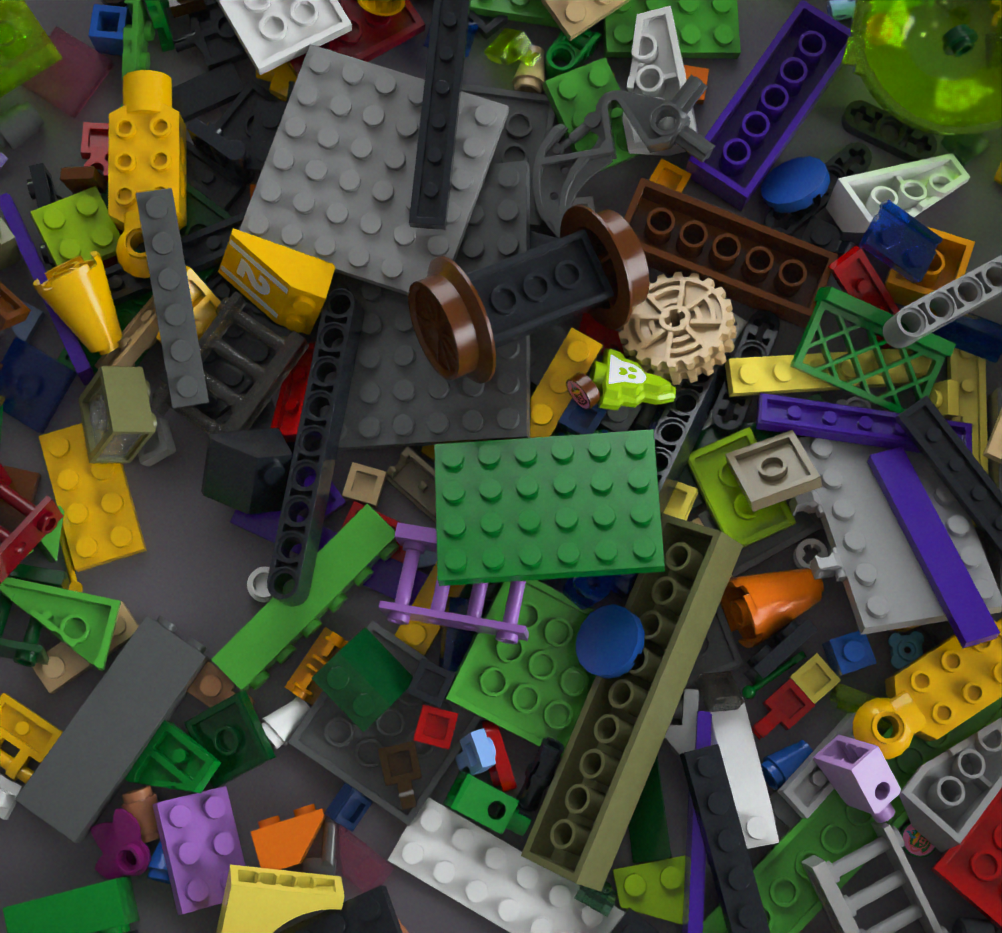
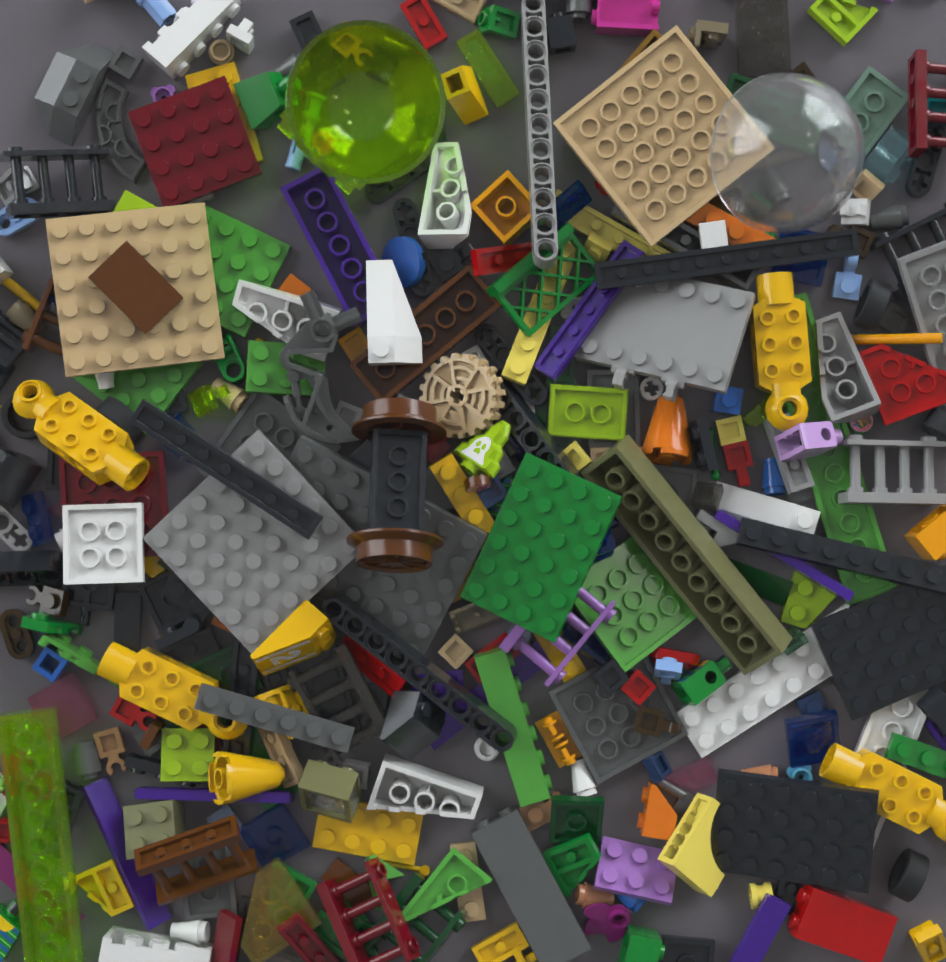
camera: 60 degrees left, 10 degrees up
(47, 144) = (110, 745): none -> medium nougat plate
(173, 529) = (422, 790): none -> white wedge
(363, 679) = (585, 718): dark green slope -> none
(539, 774) = (700, 636): black pin -> none
(610, 641) = (643, 550): blue tile -> none
(715, 197) = (390, 322): none -> white wedge
(773, 470) = (590, 388): dark tan plate -> none
(898, 643) = (745, 369): medium azure plate -> none
(901, 241) = (484, 220): clear blue plate -> none
(933, 548) = (692, 316): dark purple tile -> none
(959, 40) = (376, 110): dark green plate -> none

